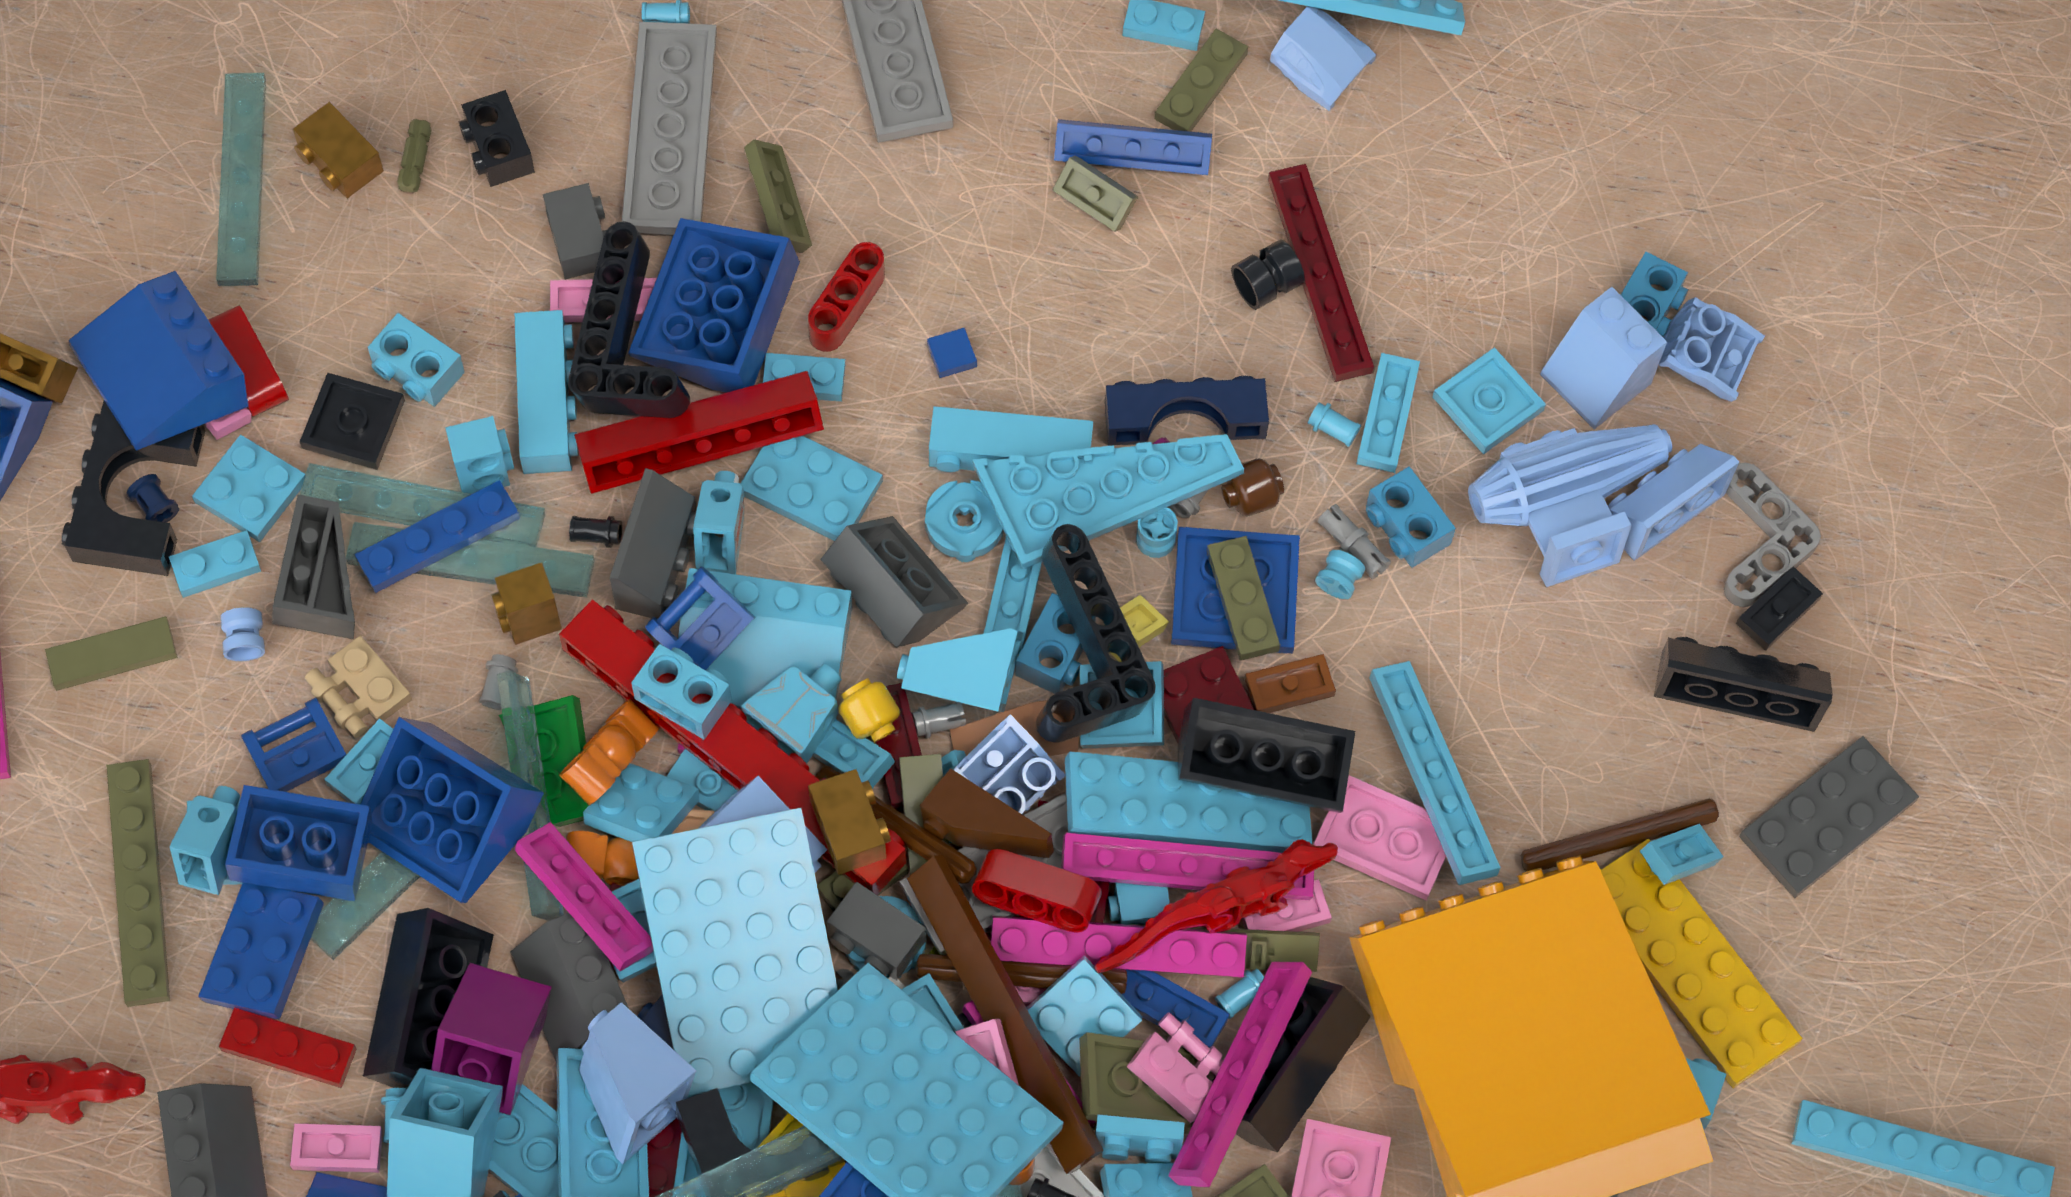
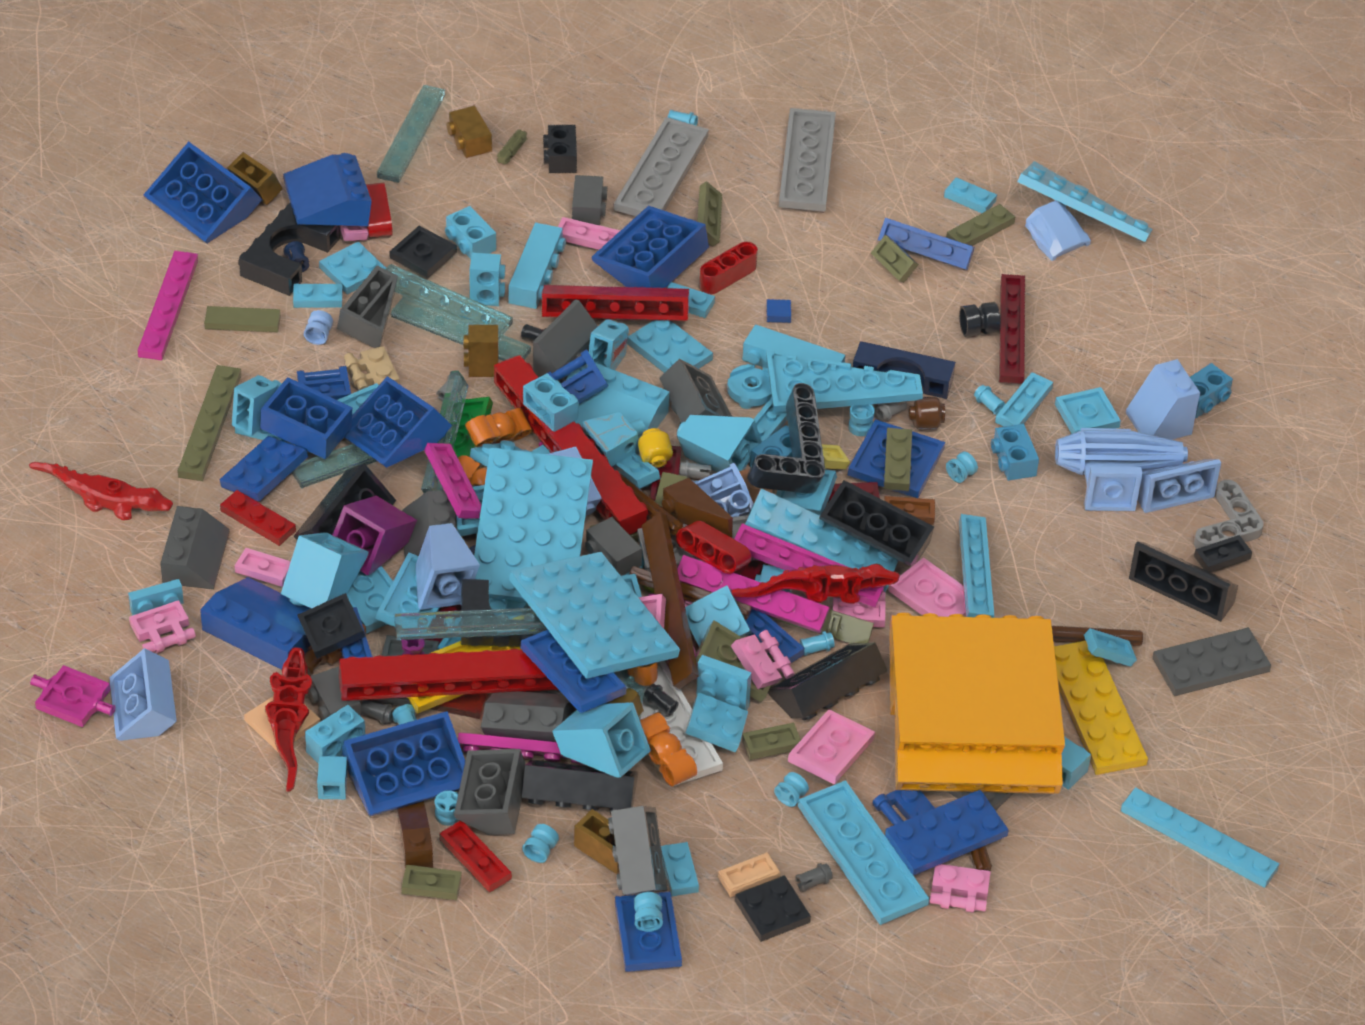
camera: 20 degrees right, 20 degrees down
(437, 536) = (446, 312): blue plate -> none
(613, 335) = (575, 257): black beam -> none
(848, 822) = (618, 483): pearl gold brick -> none
(1240, 1074) = (801, 665): dark pink plate -> none
(1354, 540) = (979, 454): light grey pin -> none
(1710, 347) = (1234, 422): light blue slope -> none

